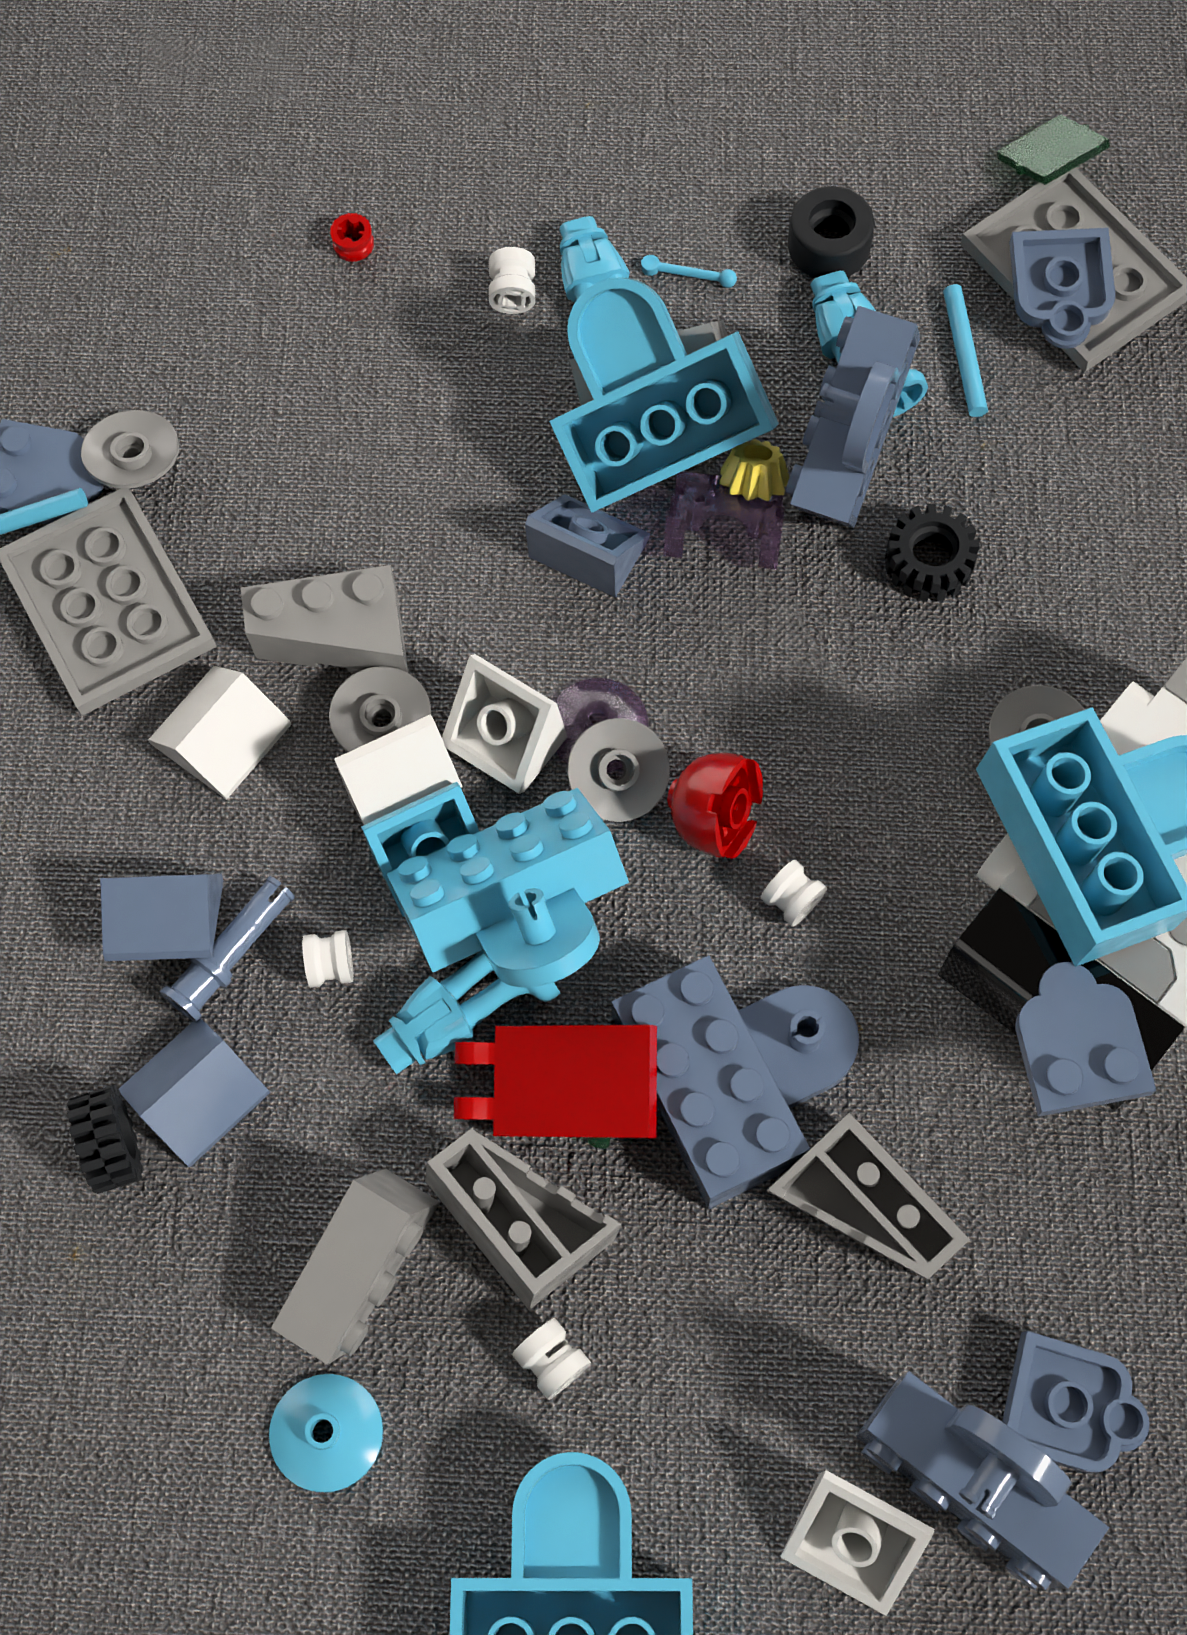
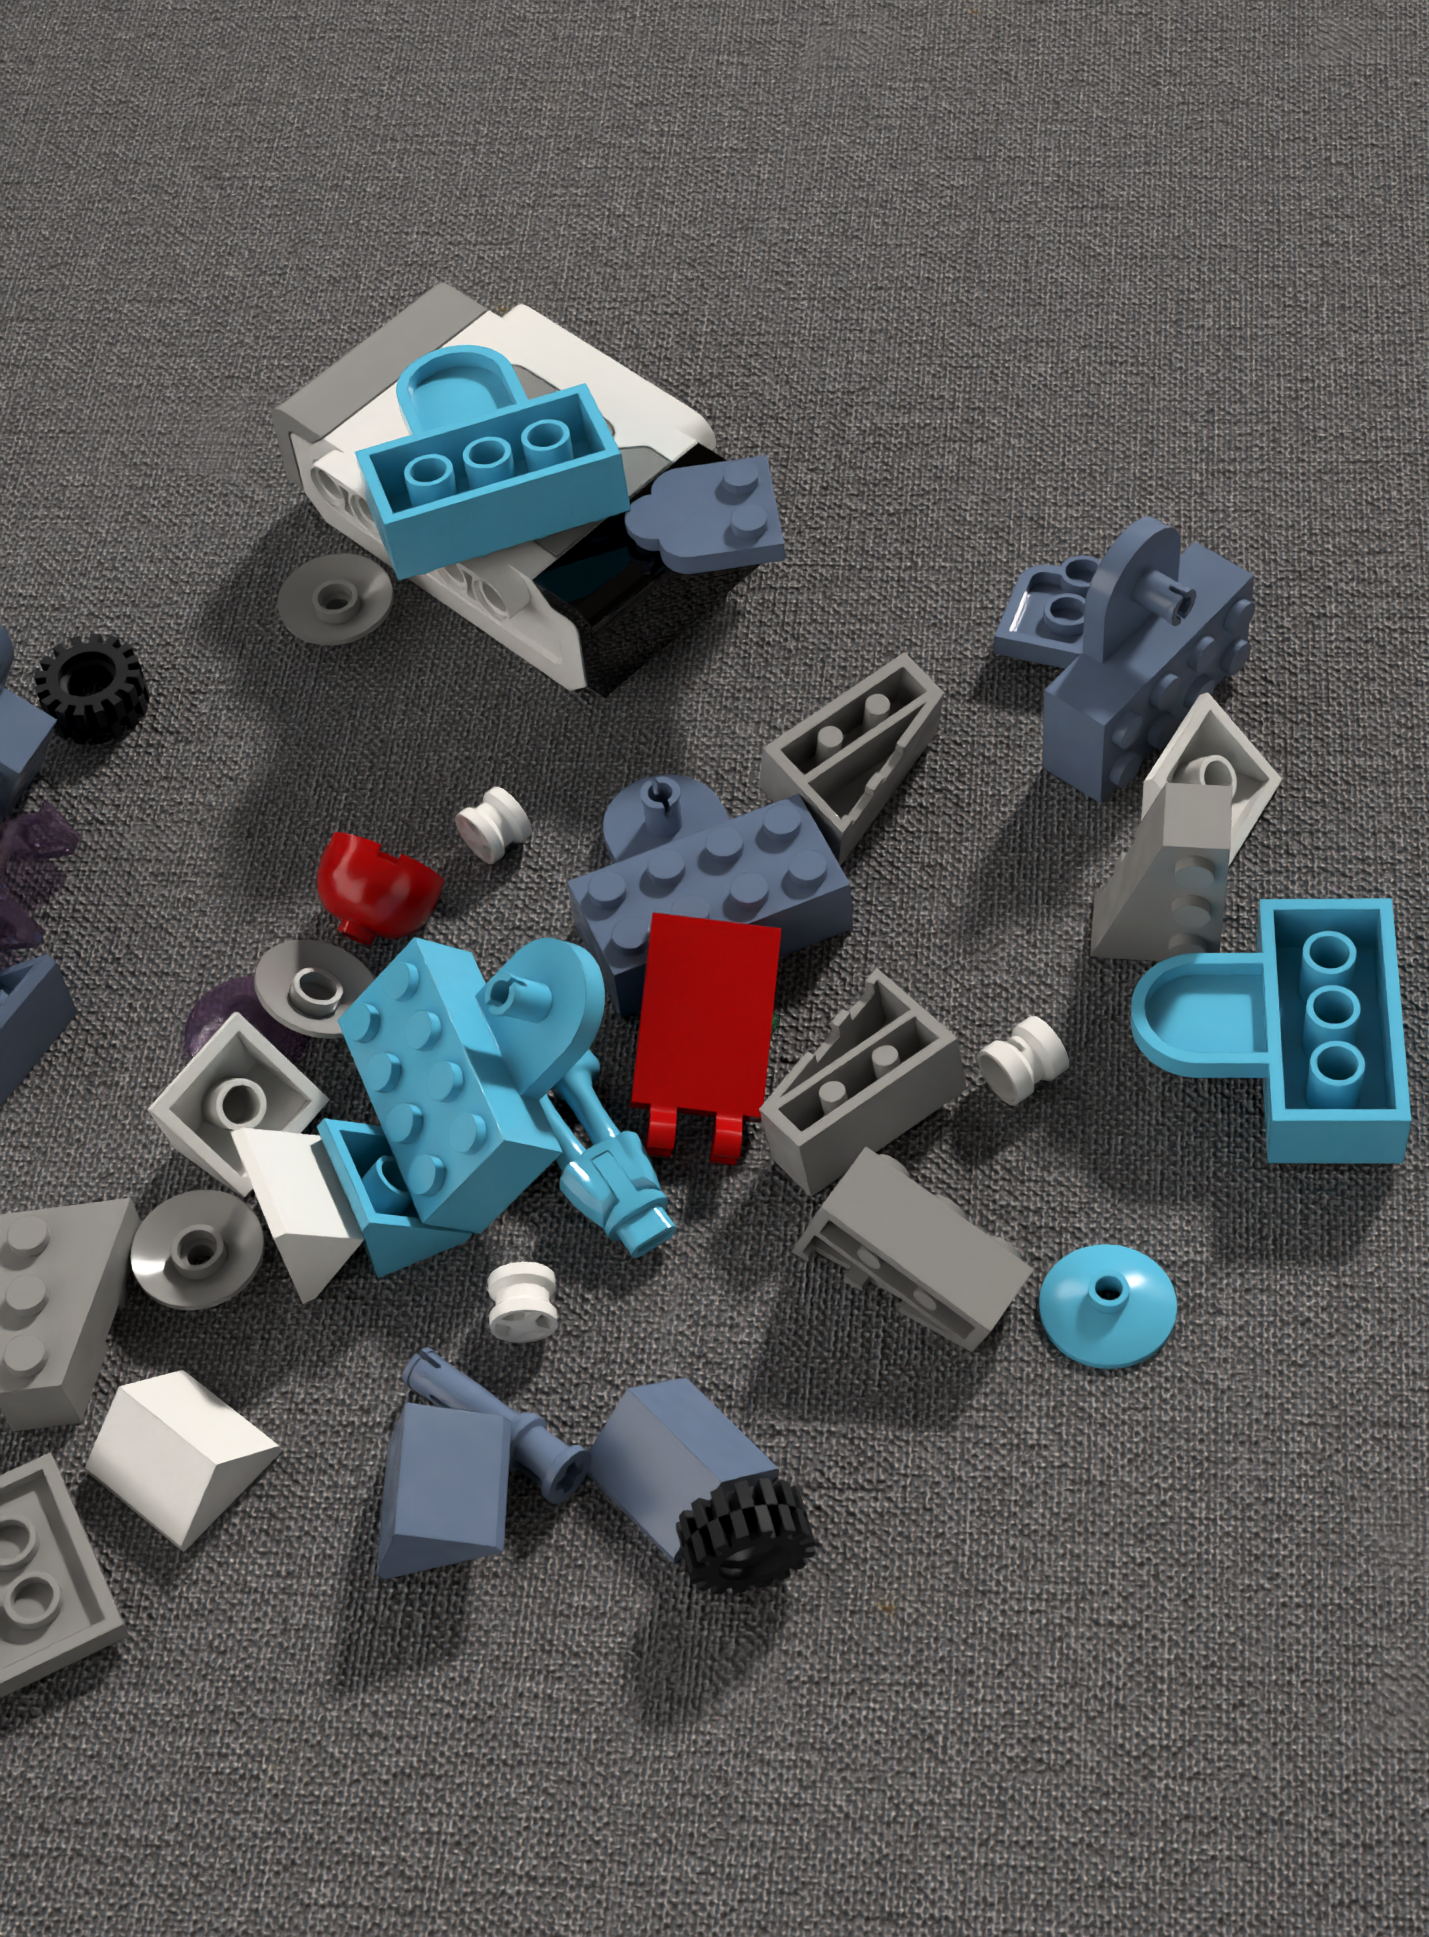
camera: 85 degrees left, 15 degrees down
(714, 1488) = (1171, 881): none -> light grey wedge

